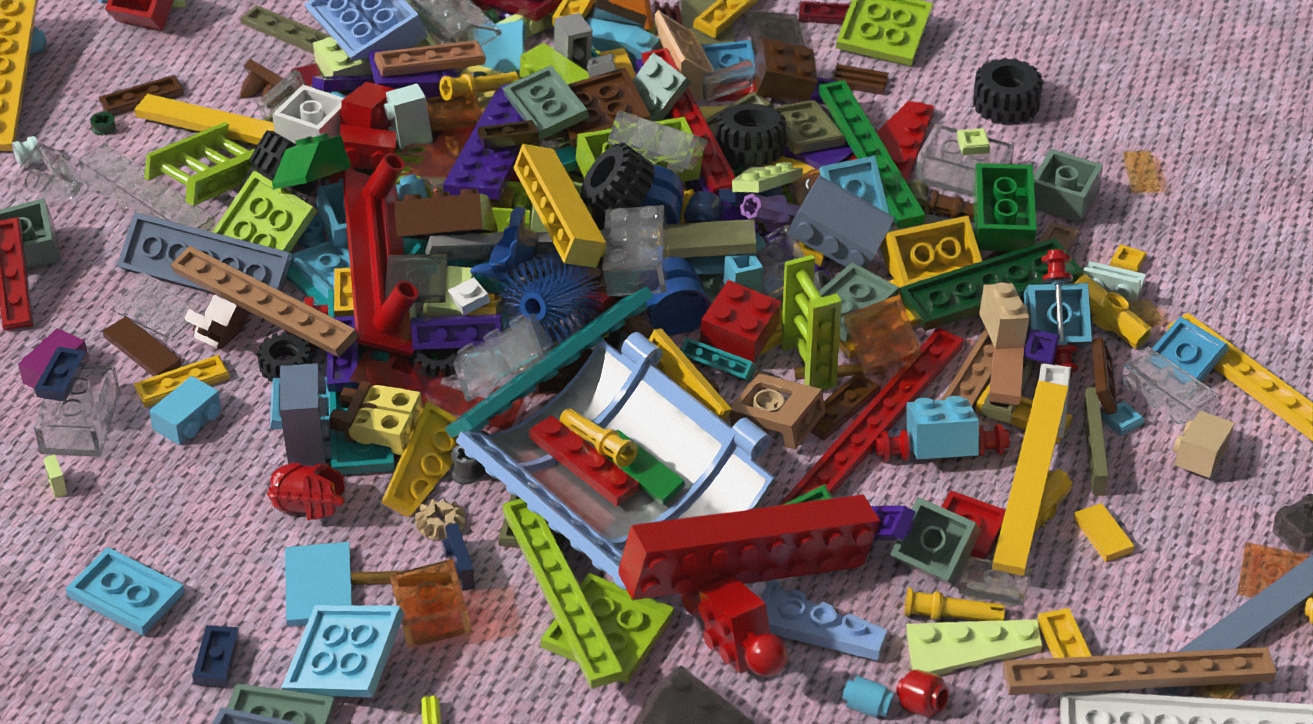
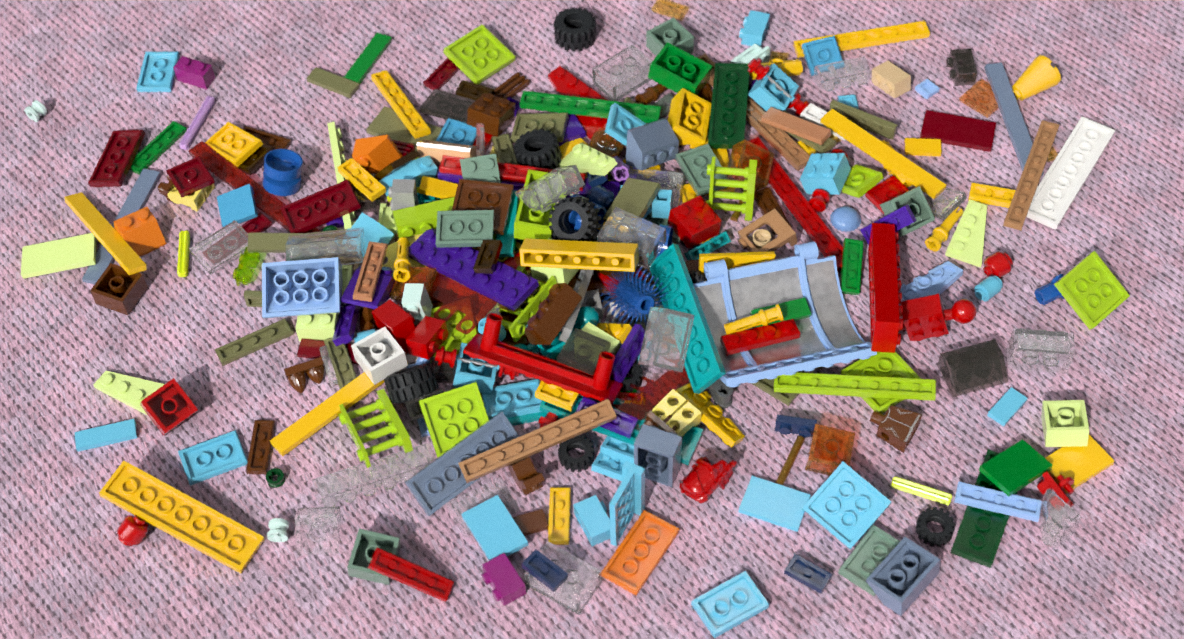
camera: 60 degrees left, 10 degrees up
(55, 476) = (611, 610): yellowish green tile -> none
(105, 66) = (212, 457): none -> medium azure tile
(123, 324) = (494, 528): none -> medium azure tile
(166, 476) = (640, 552): none -> orange tile
(222, 399) = (627, 500): none -> medium azure fence
(311, 160) = (449, 364): green slope -> none
(433, 527) = (747, 428): tan gear -> none
(468, 296) = (615, 331): white plate -> none
(515, 247) = (596, 292): hair -> none
(525, 670) = (896, 426): none -> reddish brown torso
(601, 65) = (441, 190): light grey tile -> none
(823, 49) = (472, 90): none -> dark brown plate
(888, 489) = (845, 219): none -> medium blue hat
(963, 473) = (861, 180): none -> lime plate
(973, 141) = (621, 59): yellowish green tile -> none
(1004, 315) = (768, 108): tan brick -> none
(1041, 346) = (794, 105): dark purple tile -> none
(1104, 376) = (821, 93): reddish brown tile -> none
(1128, 258) = (733, 46): yellow tile -> none
(1175, 564) = (958, 130): none -> dark red tile
(1176, 265) = (754, 28): none -> medium azure brick
(1232, 499) = (927, 88): none -> light blue tile

